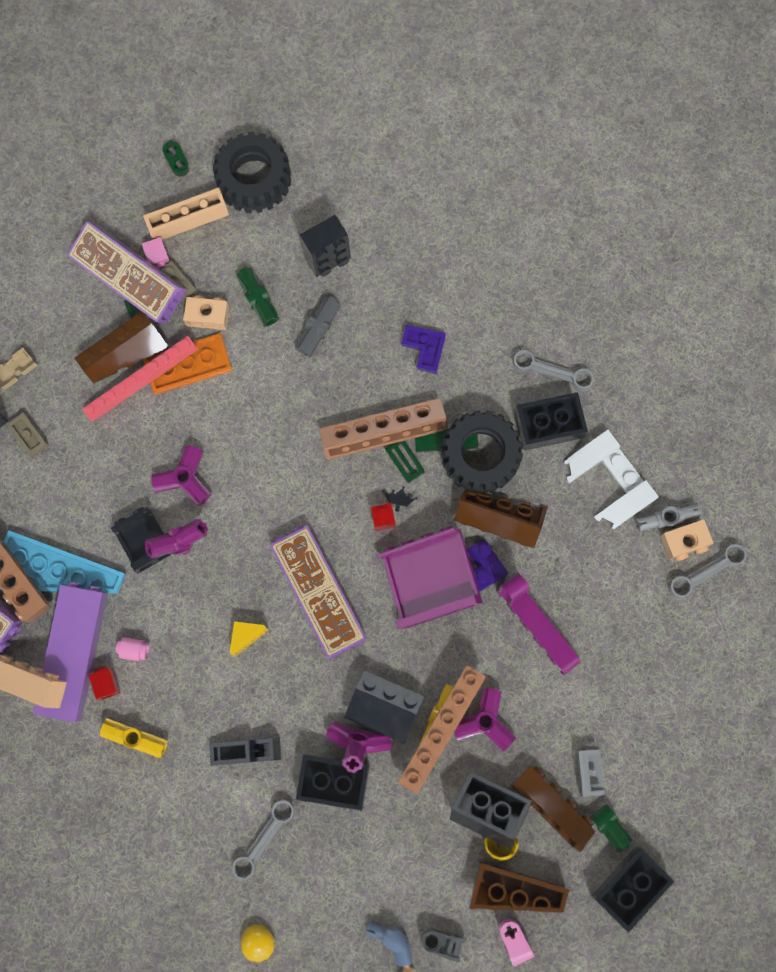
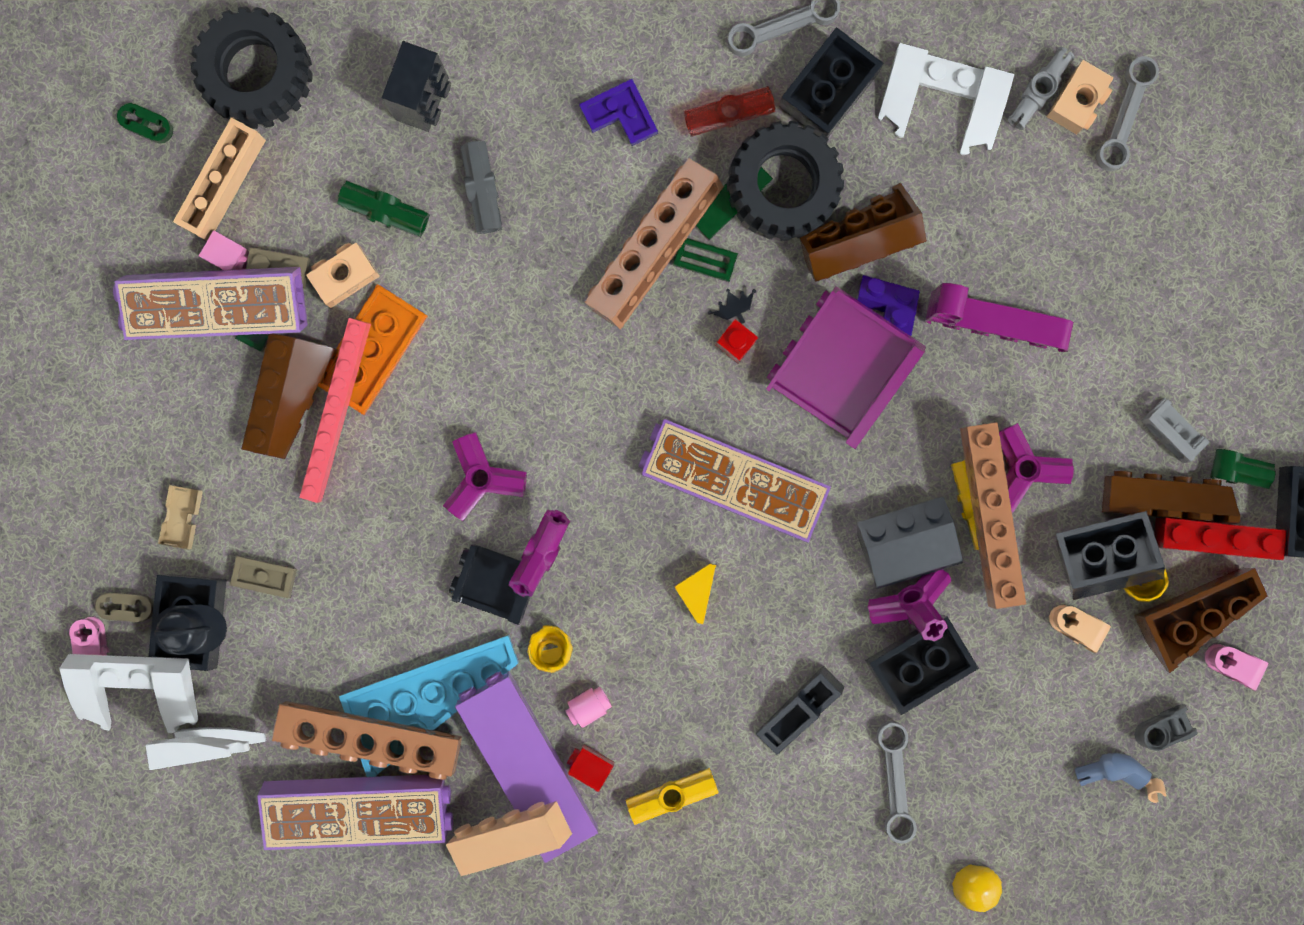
camera: 40 degrees left, 10 degrees up
(136, 606) = (551, 659): none -> yellow hair
(442, 843) = (1082, 627): none -> light nougat piece
(497, 398) = (748, 105): none -> clear red piece
(565, 857) = (1220, 538): none -> red brick

